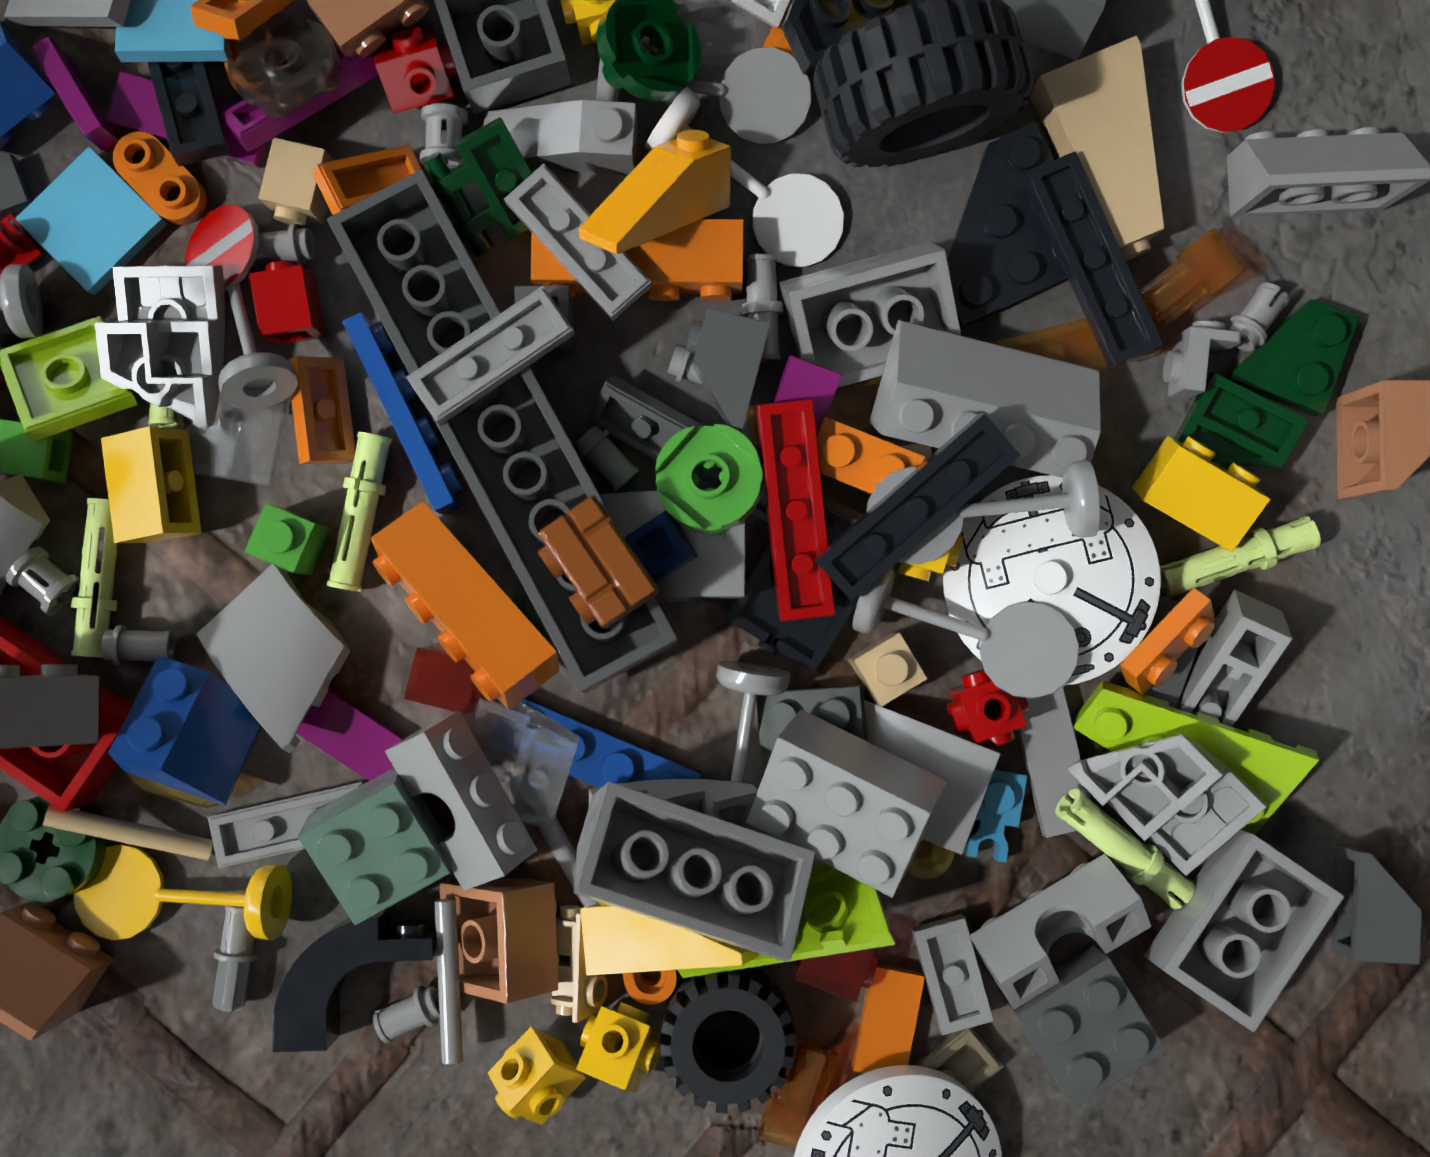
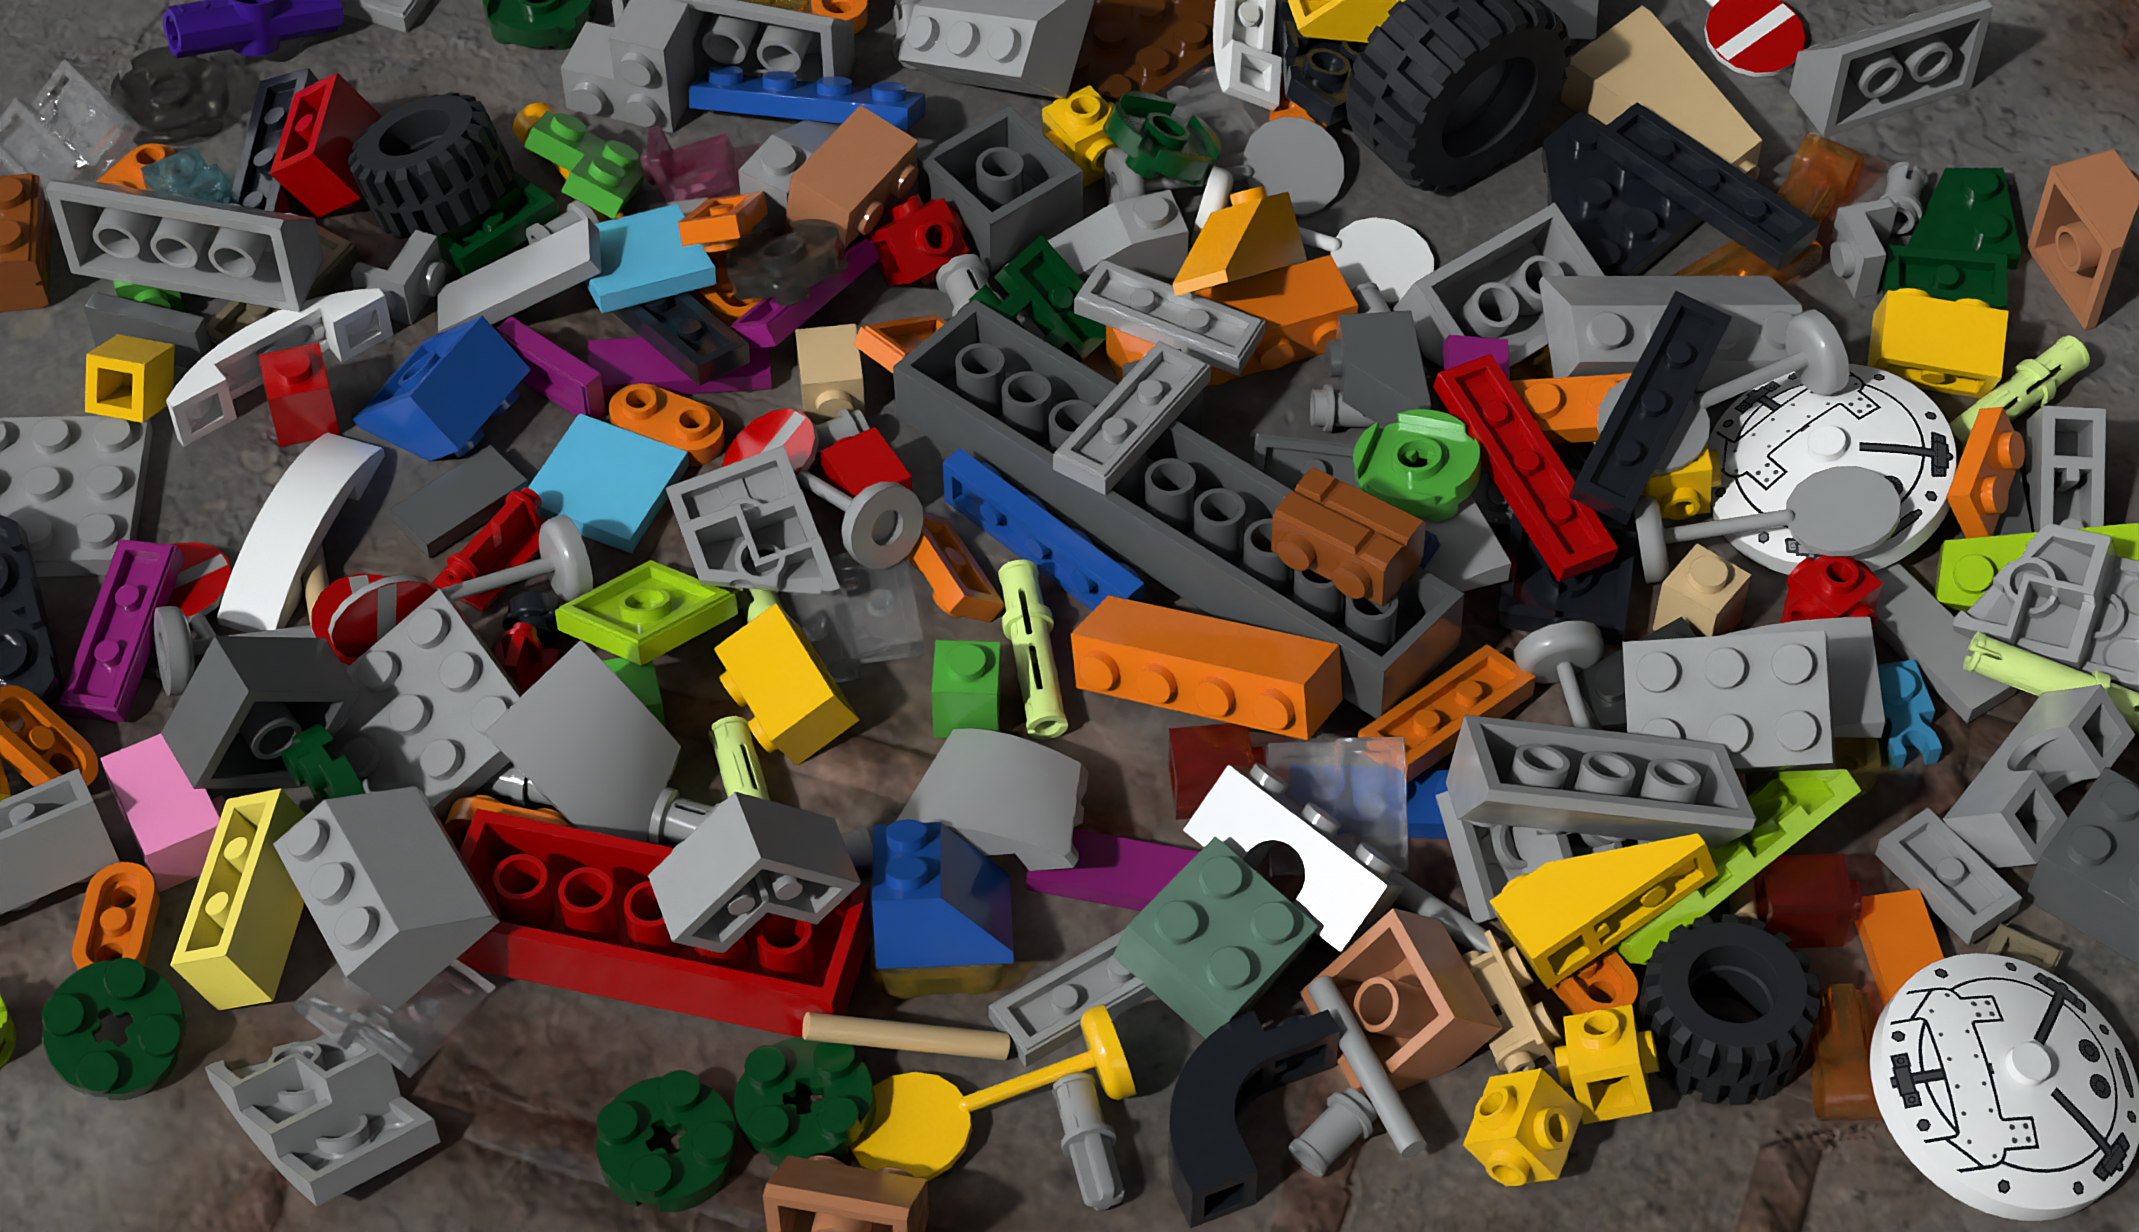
camera: 15 degrees left, 35 degrees down
(642, 698) = (1432, 717): none -> orange plate

